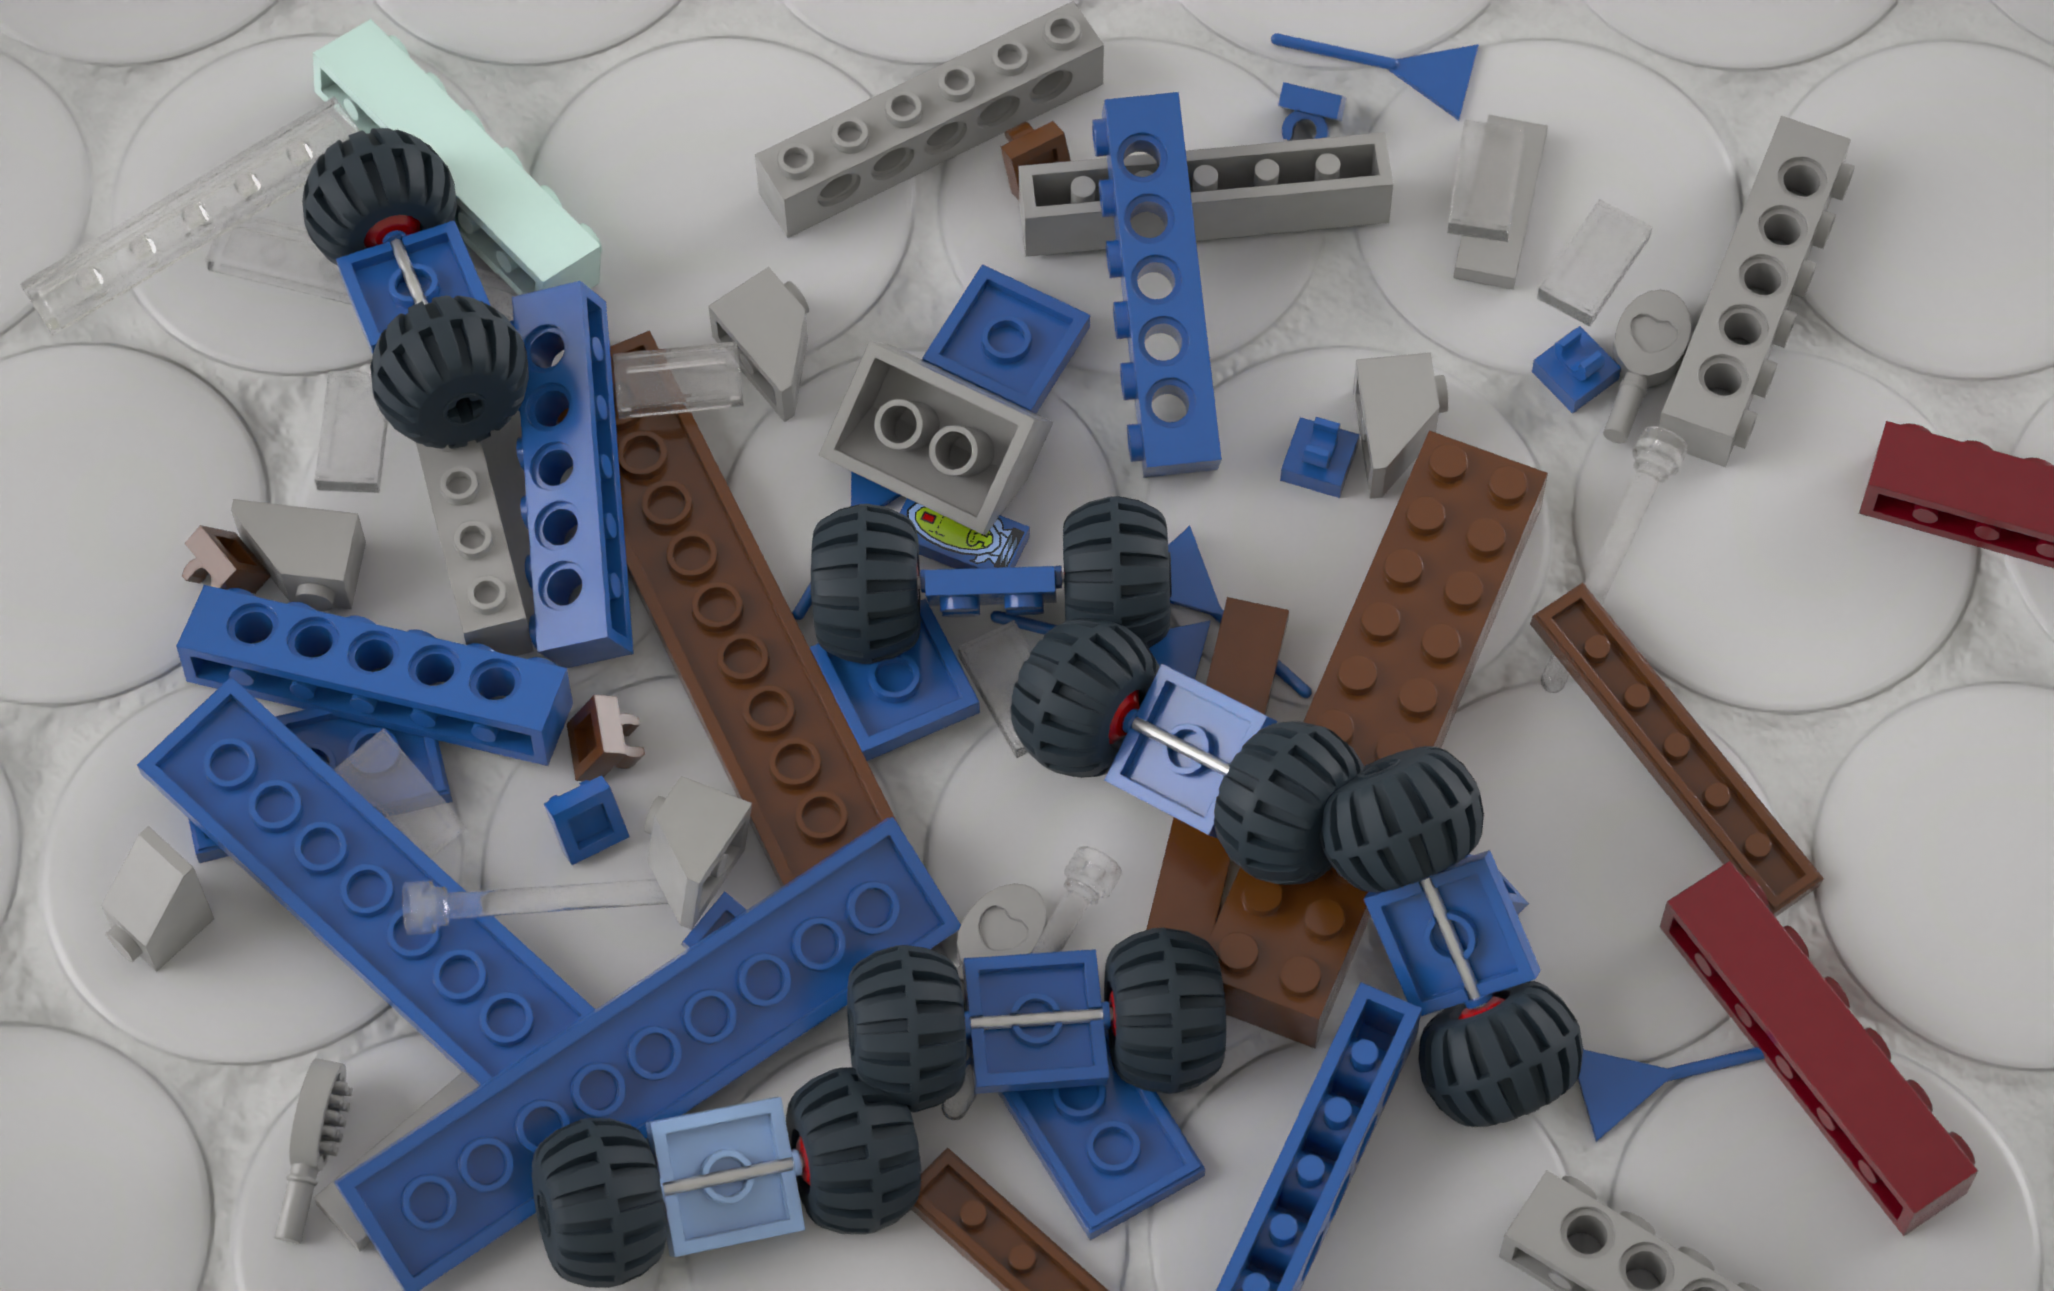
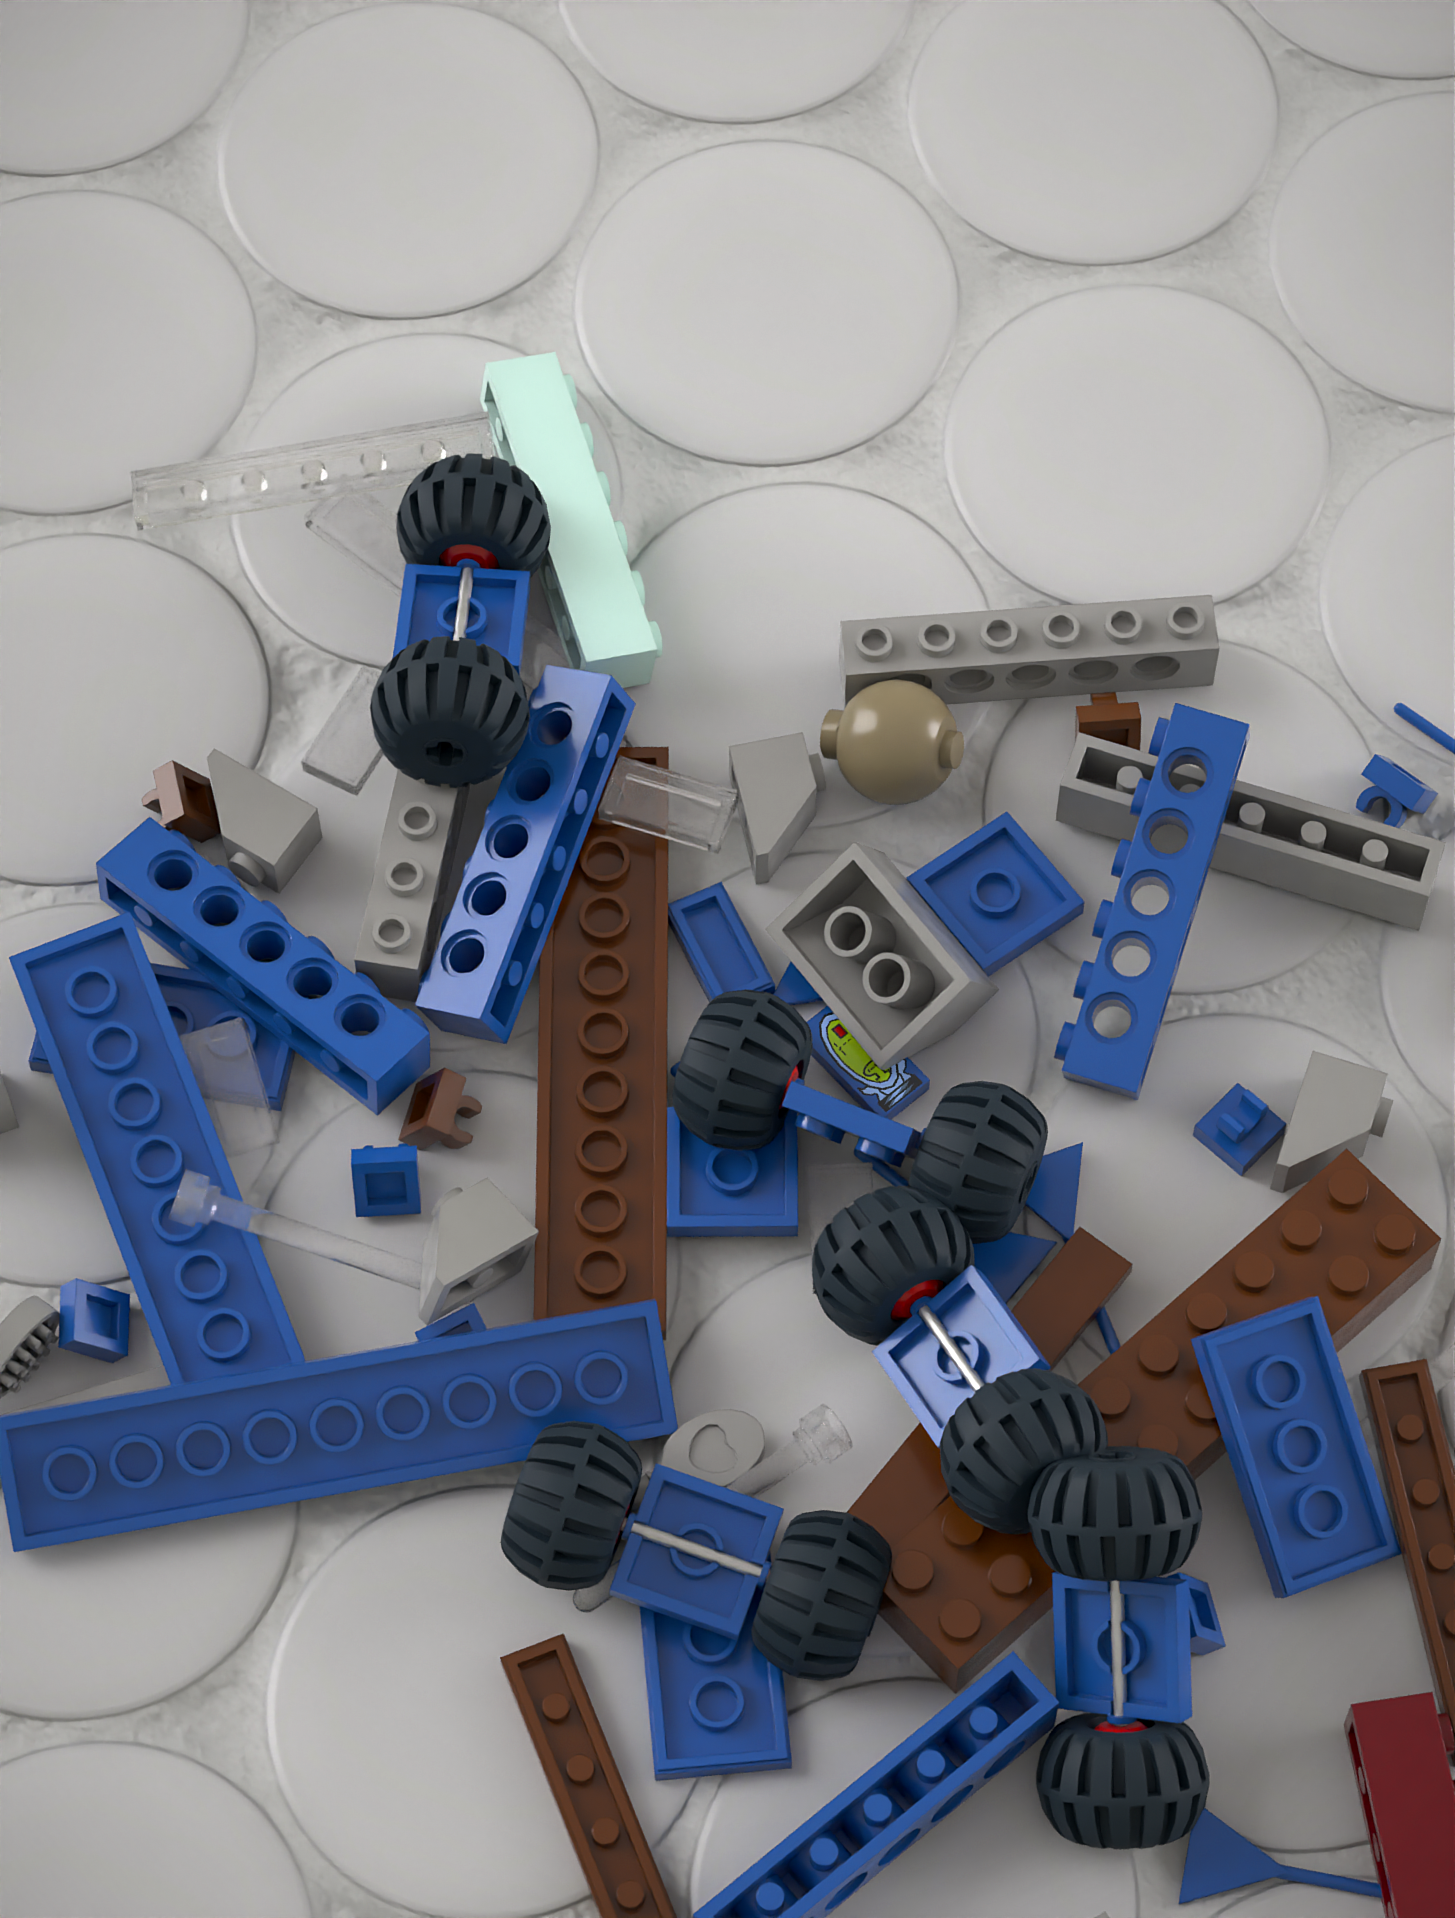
camera: 25 degrees right, 0 degrees up
(379, 1058) = (94, 1320): none -> blue plate
(723, 1178) = (340, 1570): black plate -> none
(780, 489) = (717, 943): none -> blue tile
(851, 243) = (893, 742): none -> dark tan brick
(1512, 703) = (1296, 1447): none -> blue tile

